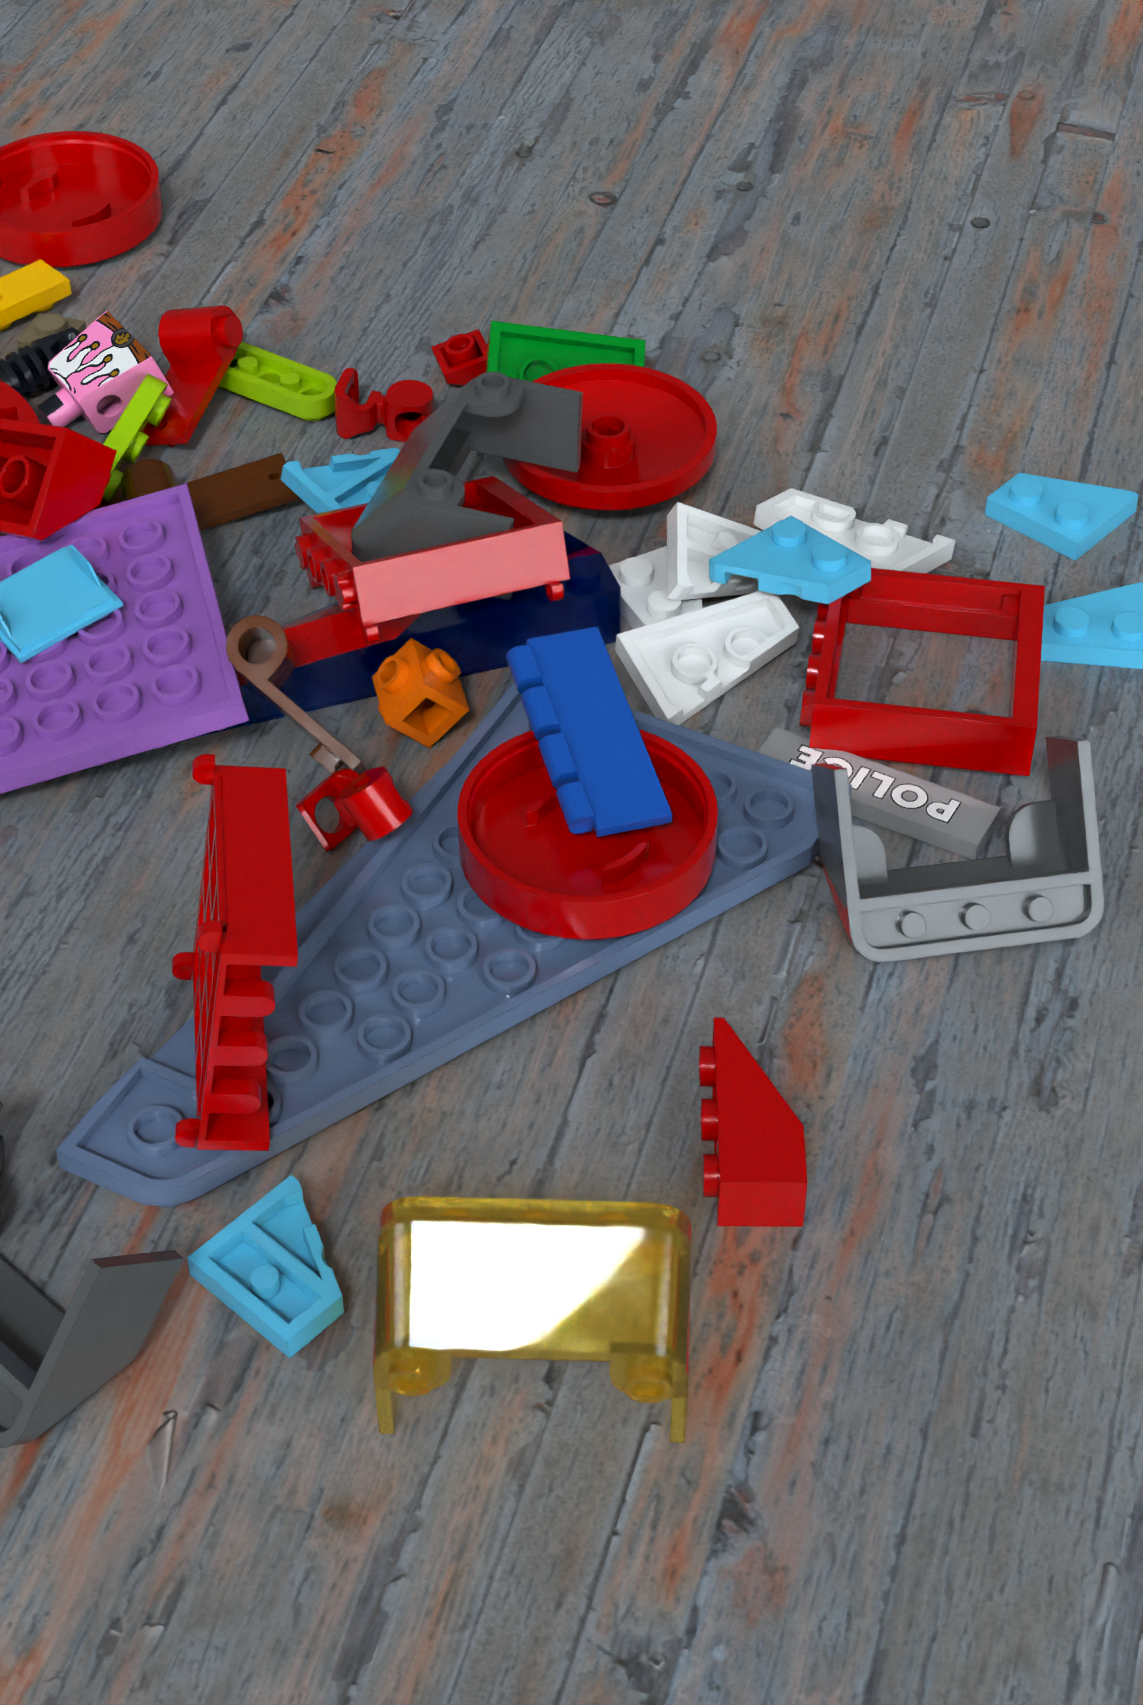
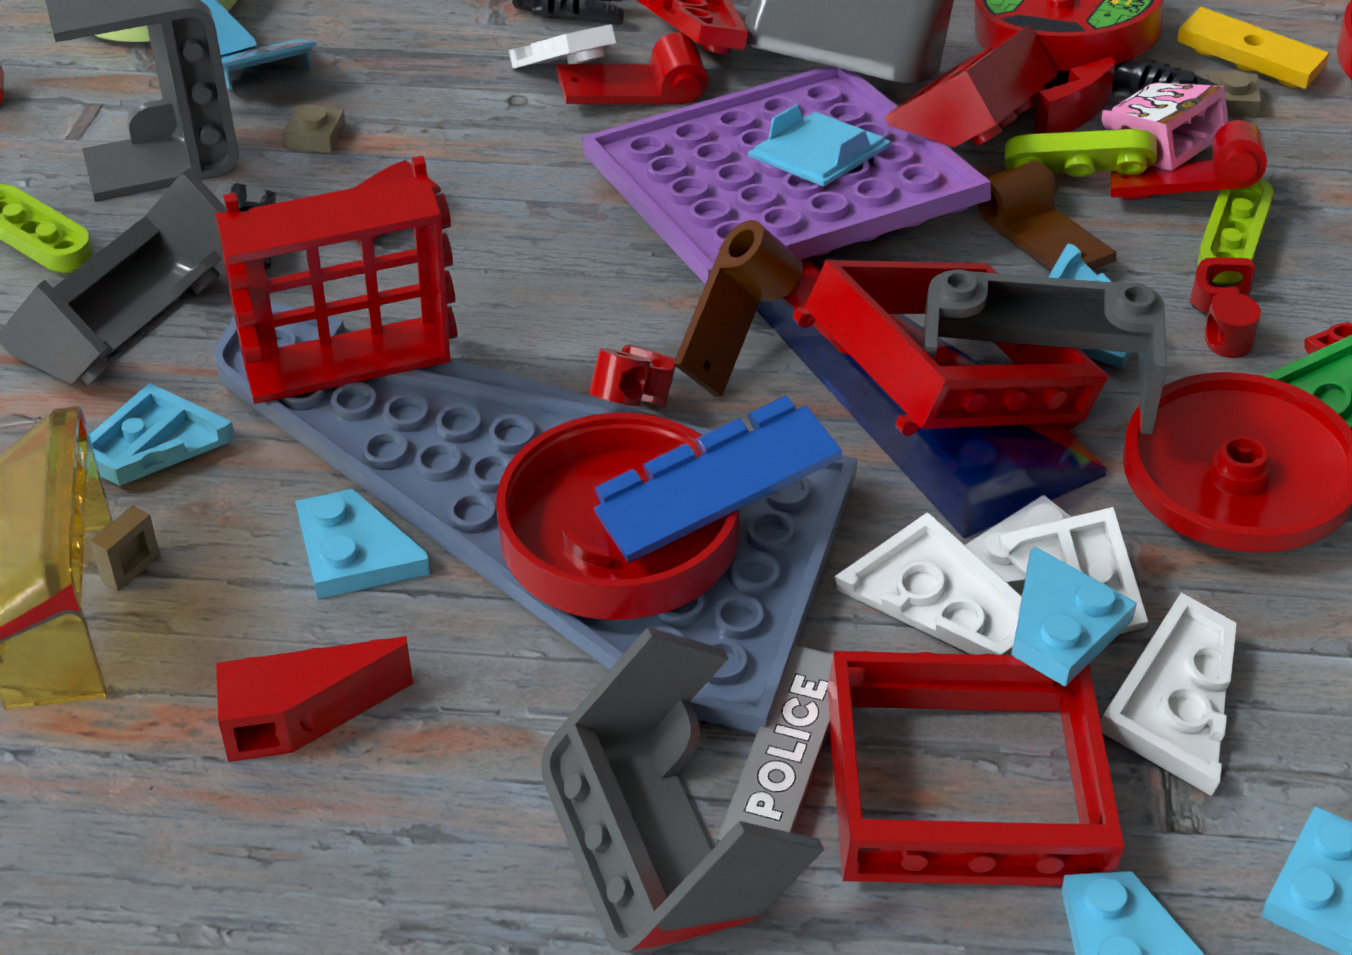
camera: 80 degrees right, 0 degrees up
(420, 692) = (805, 382): orange brick -> none
(509, 1092) = (355, 545): none -> medium azure wing

